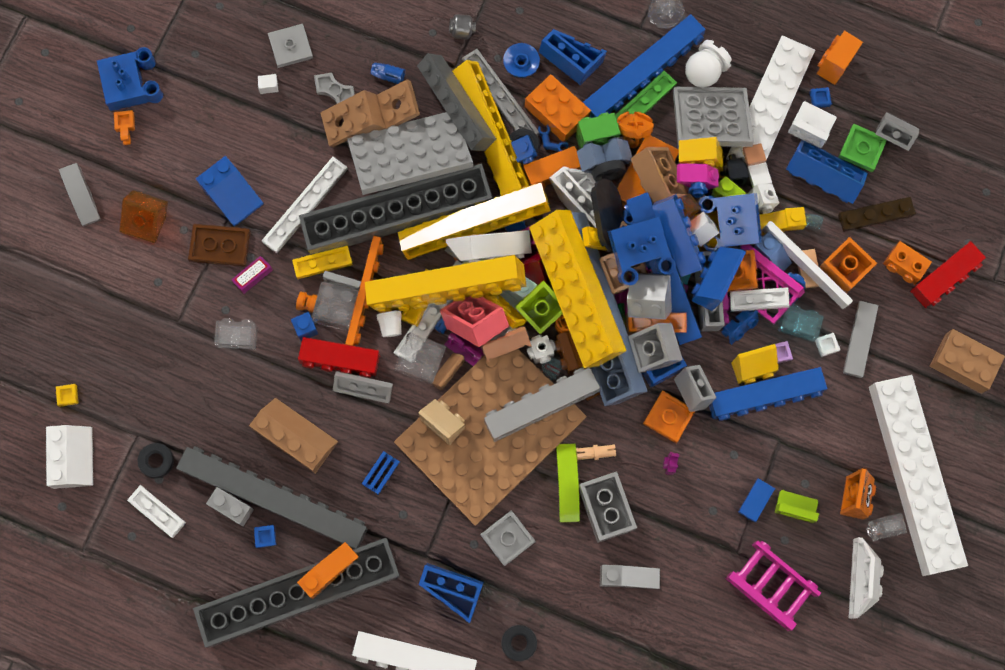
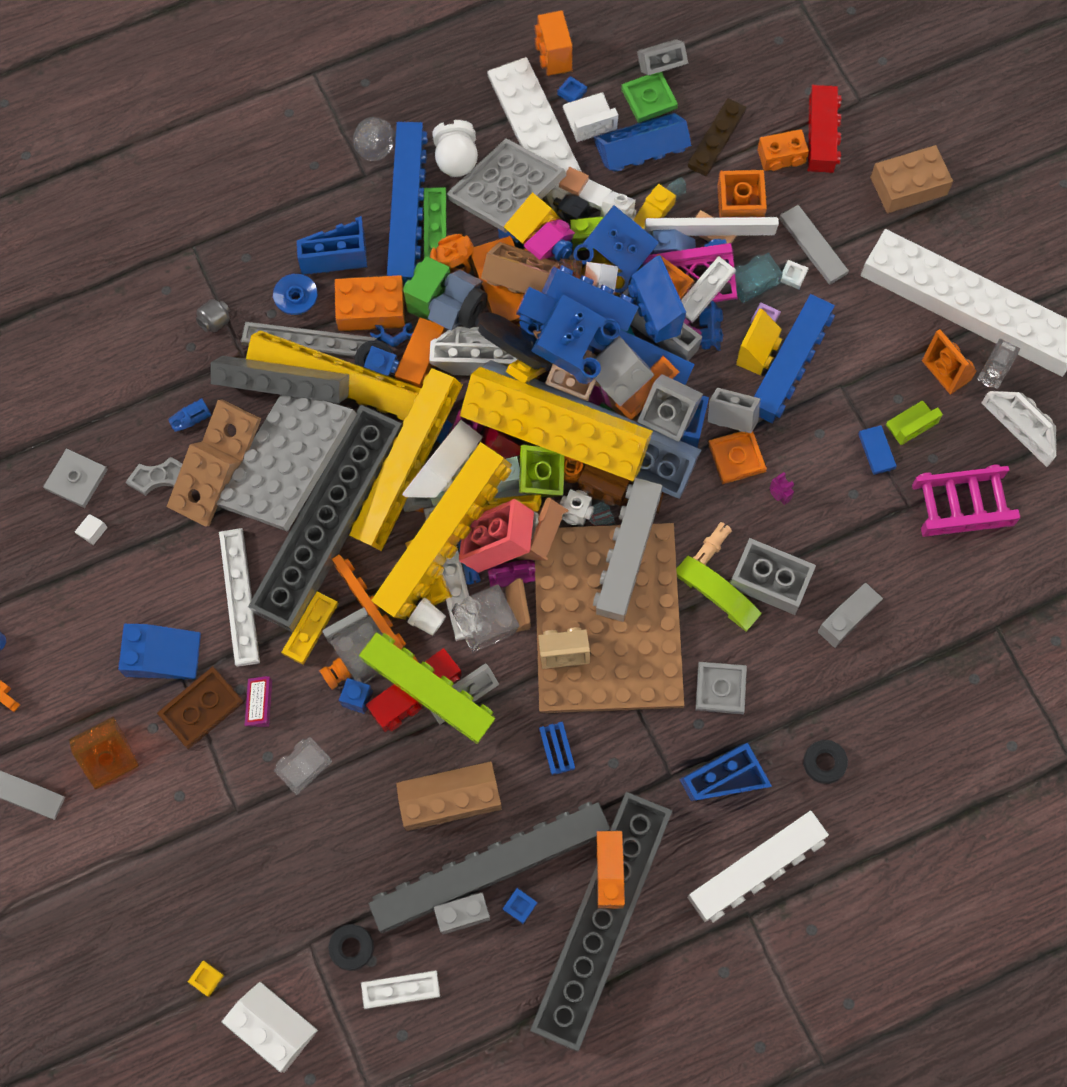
camera: 40 degrees left, 5 degrees down
(342, 363) = (426, 687): none -> lime brick

